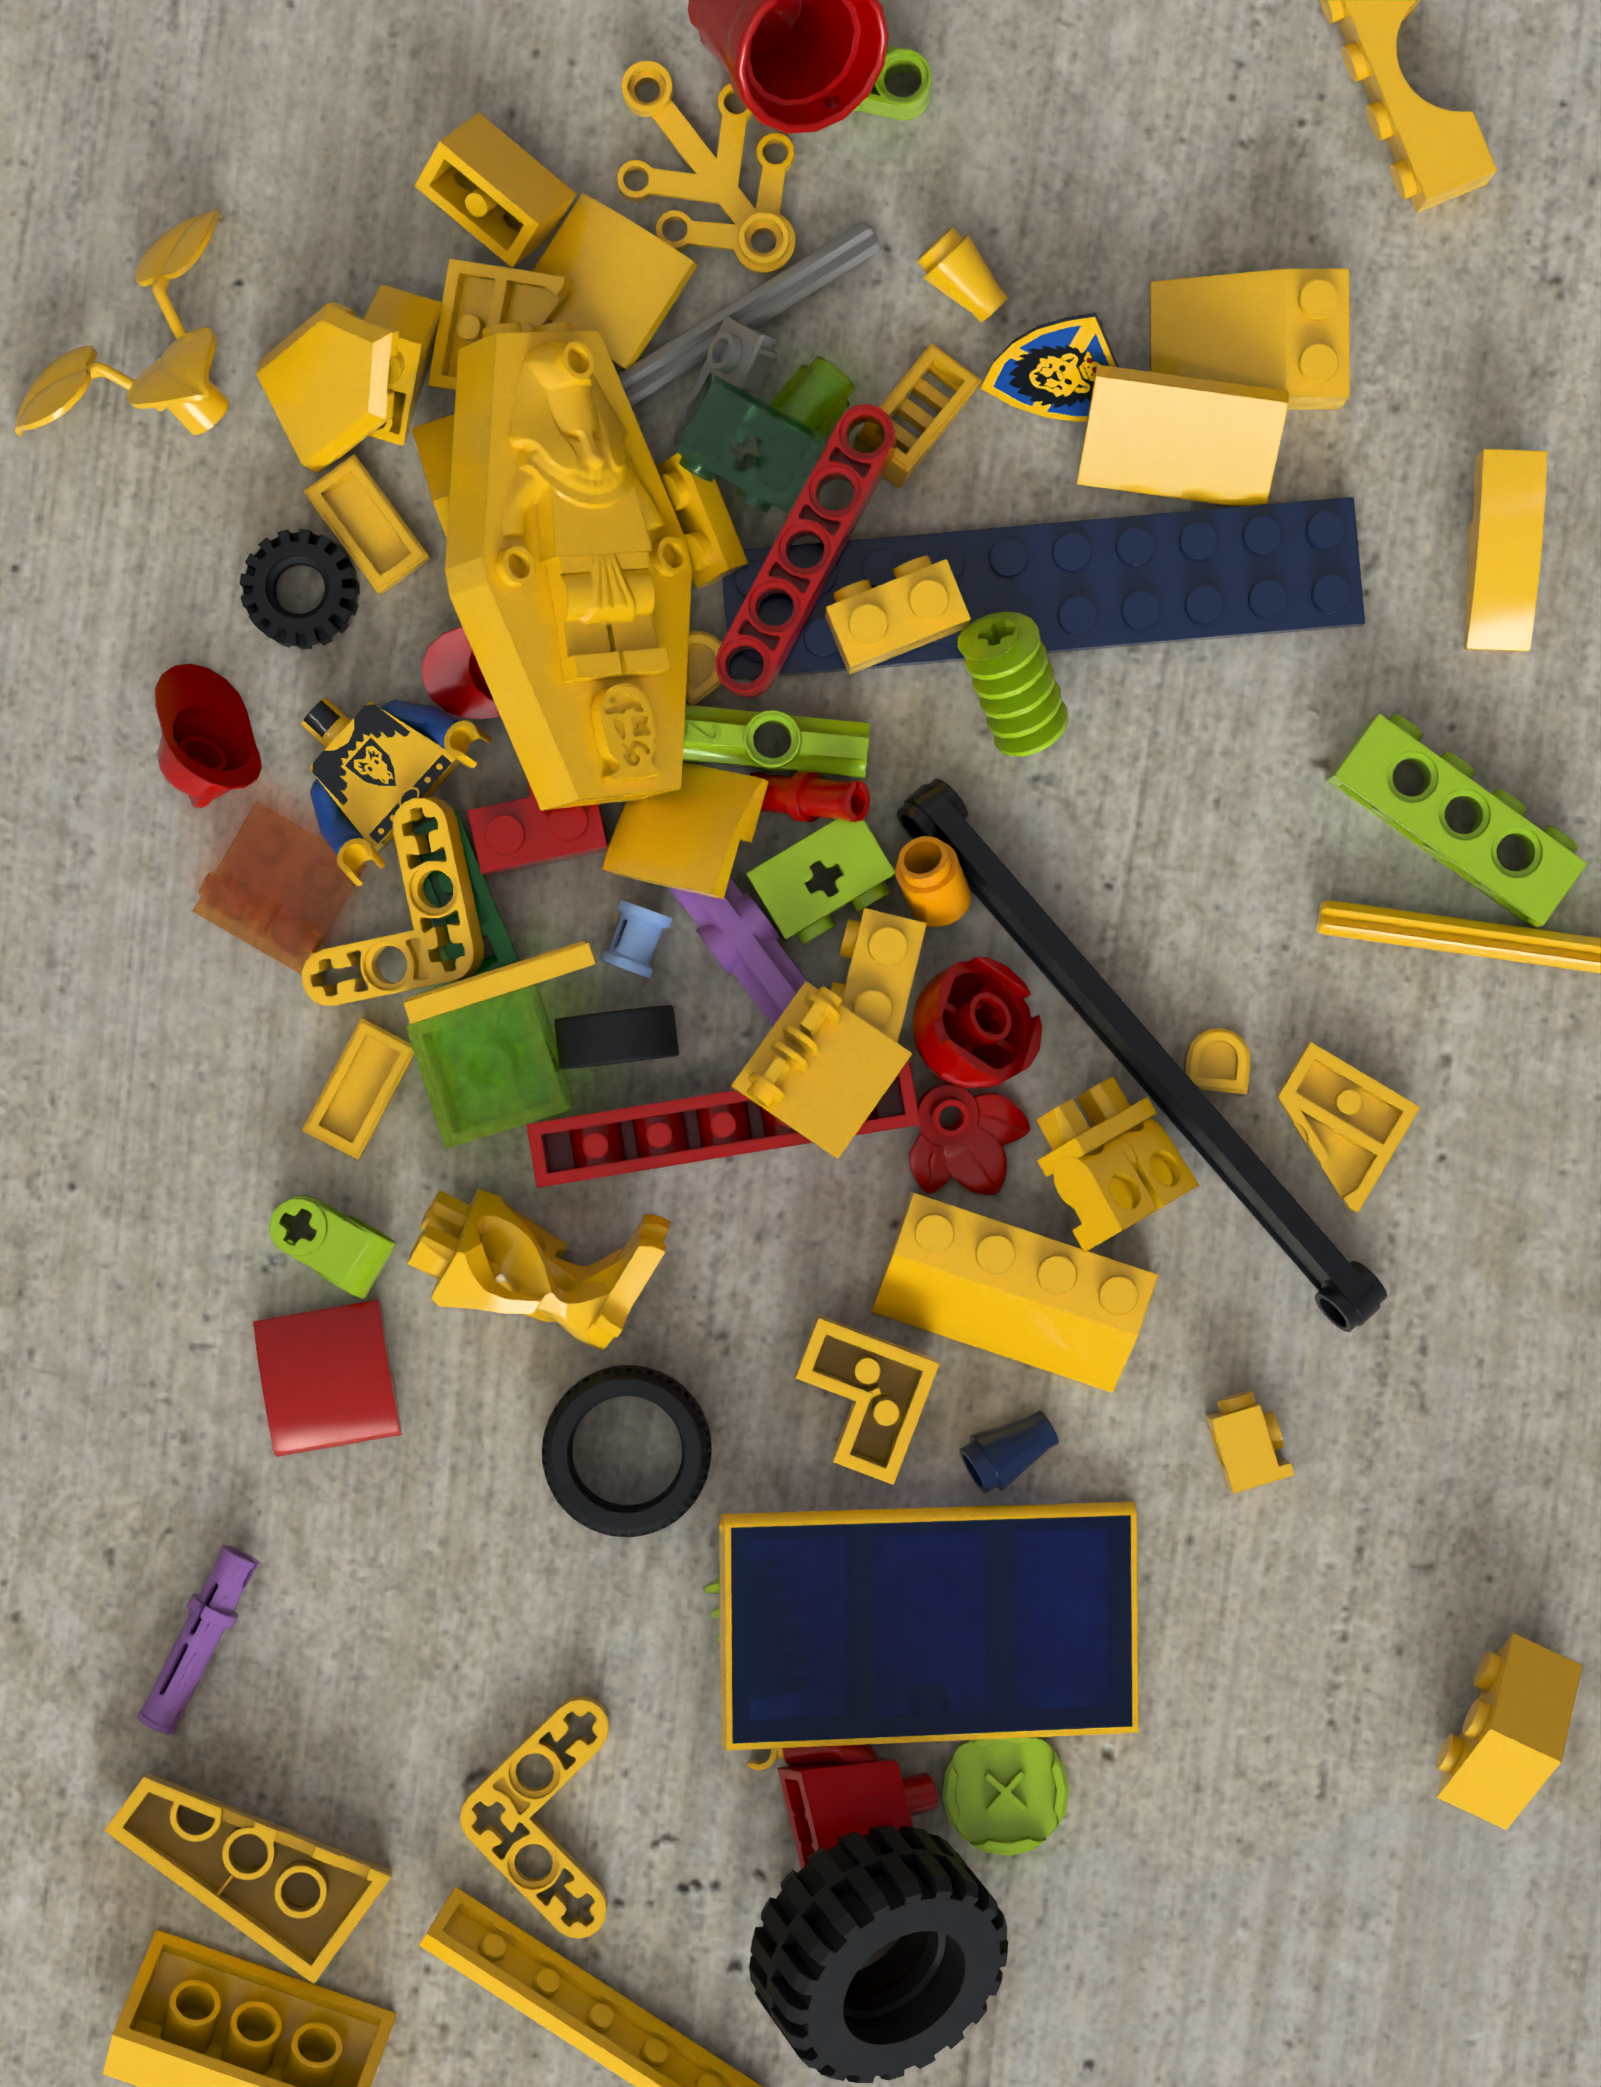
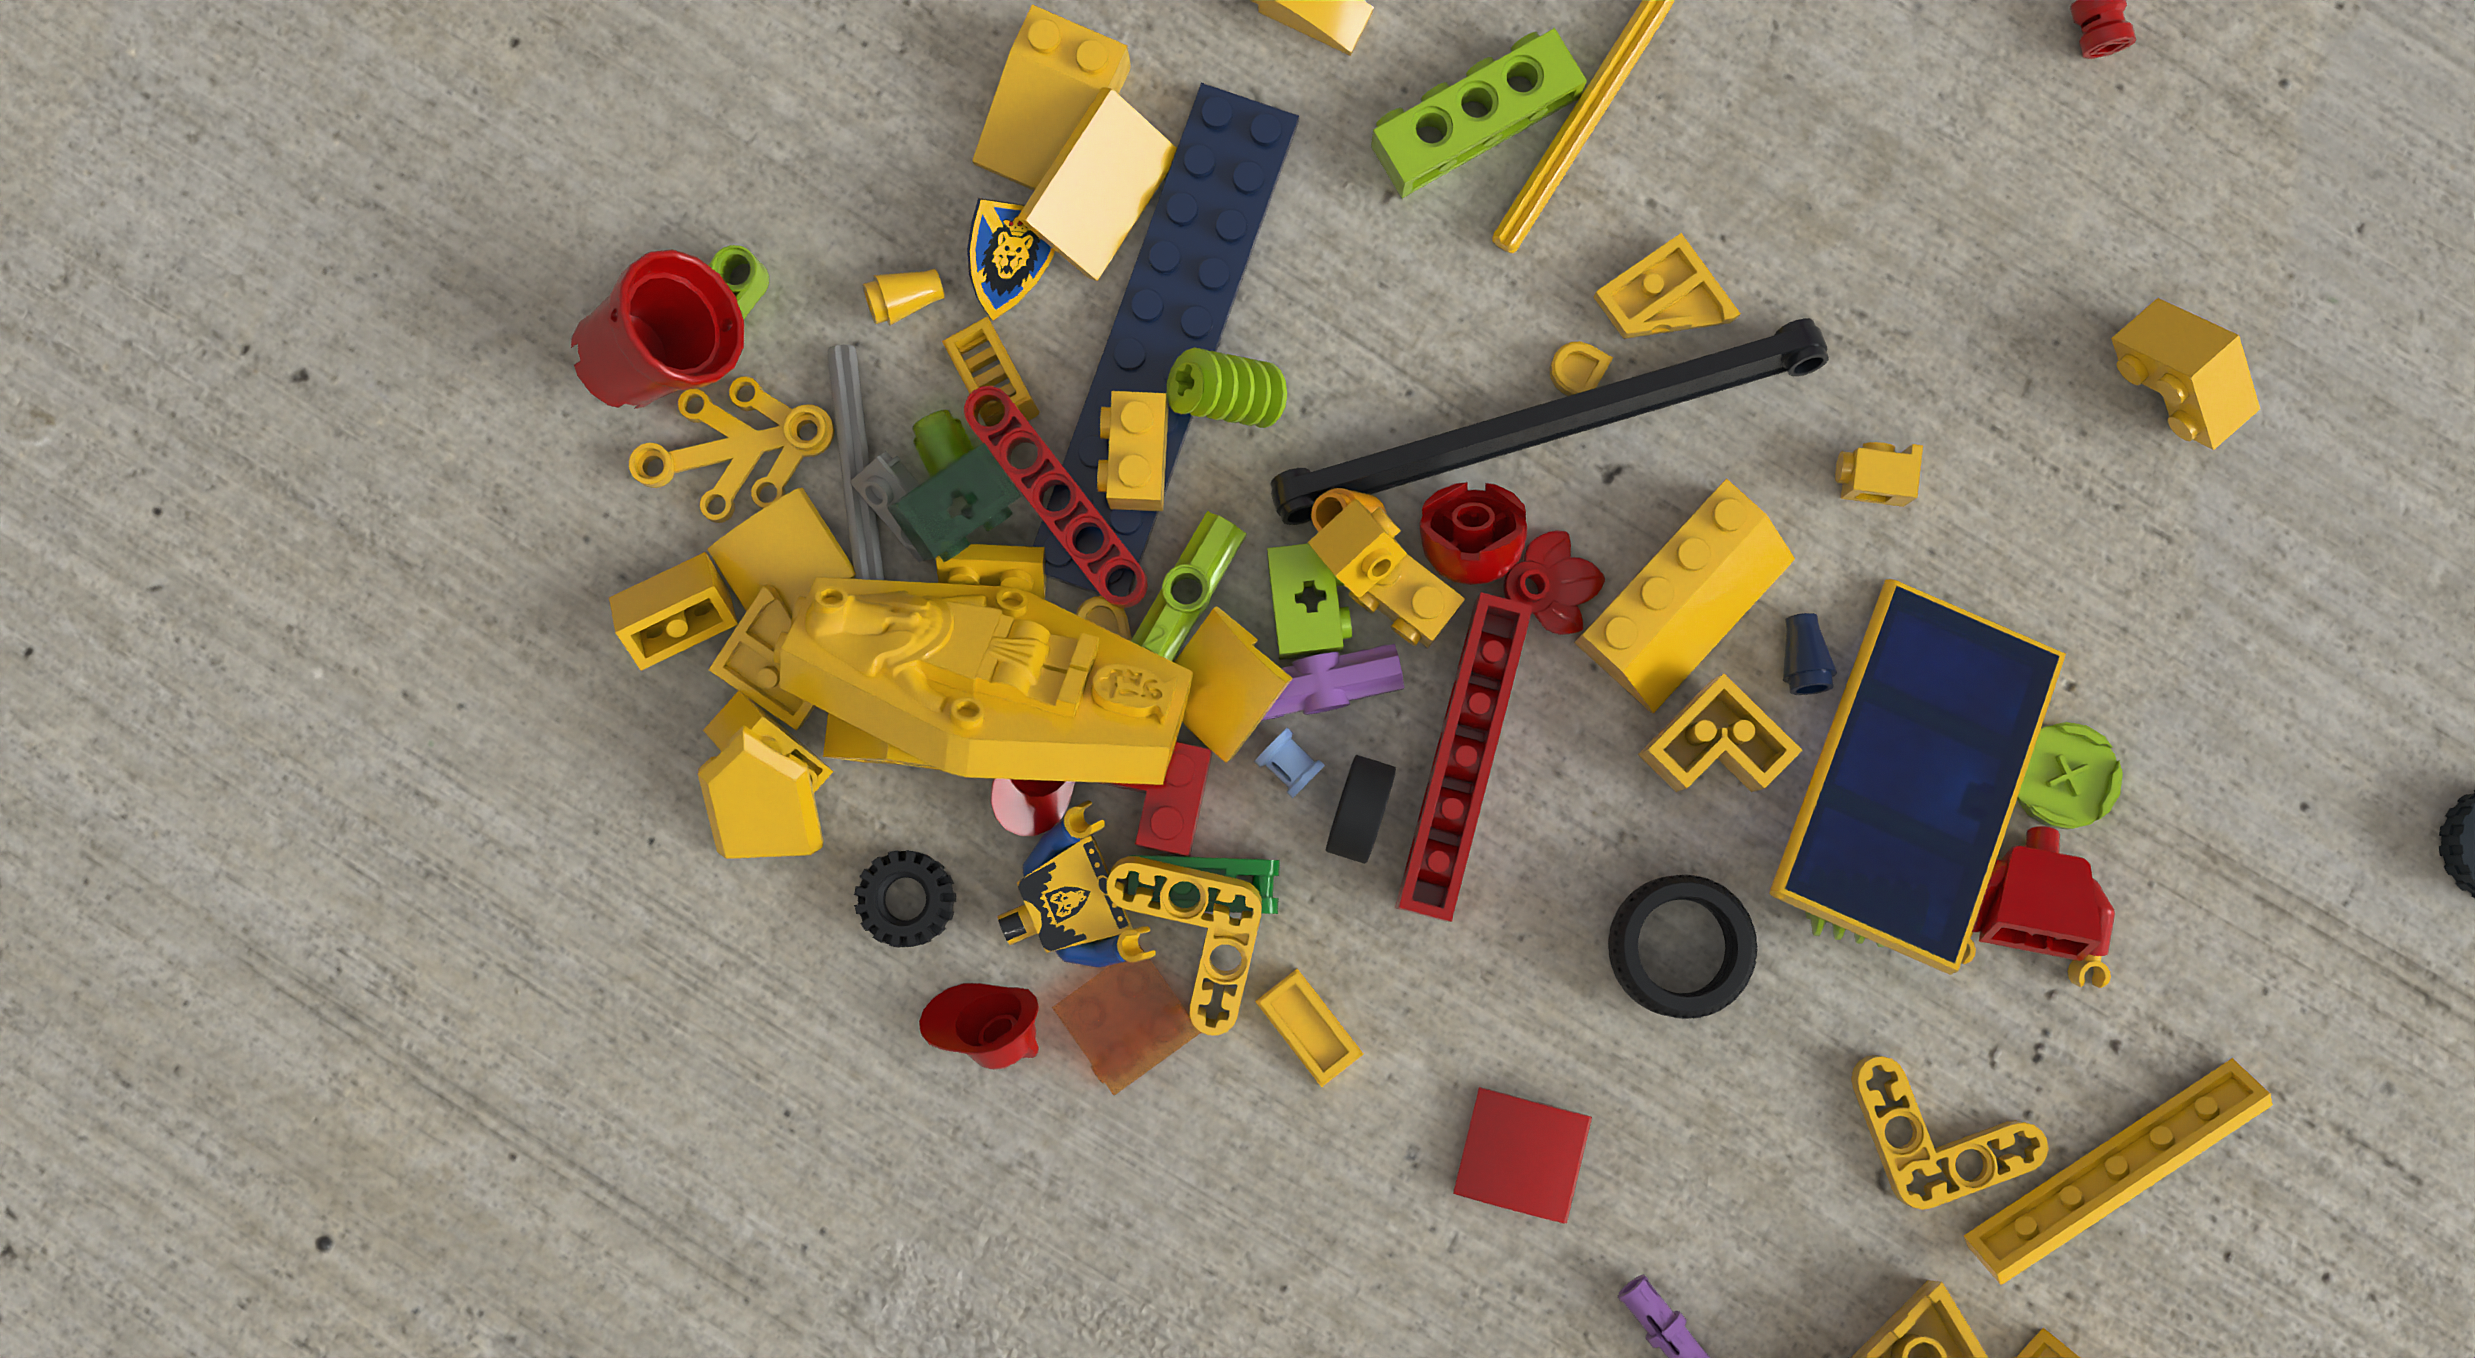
camera: 65 degrees left, 5 degrees down
(175, 380) = (702, 916): yellow plant -> none
(343, 1247) = (1429, 1098): lime piece -> none
(367, 525) = (880, 826): yellow tile -> none
(491, 1066) = (1338, 916): clear neon green brick -> none
(499, 981) = (1277, 878): yellow tile -> none
(507, 1264) = (1500, 973): yellow hips -> none
(810, 797) = (1243, 579): red pin -> none
(821, 1069) = (1458, 660): yellow hinge -> none
(845, 1911) = (2167, 924): black tyre -> none
(895, 906) = (1359, 546): none -> yellow brick
(1115, 1168) = (1624, 477): yellow hips -> none

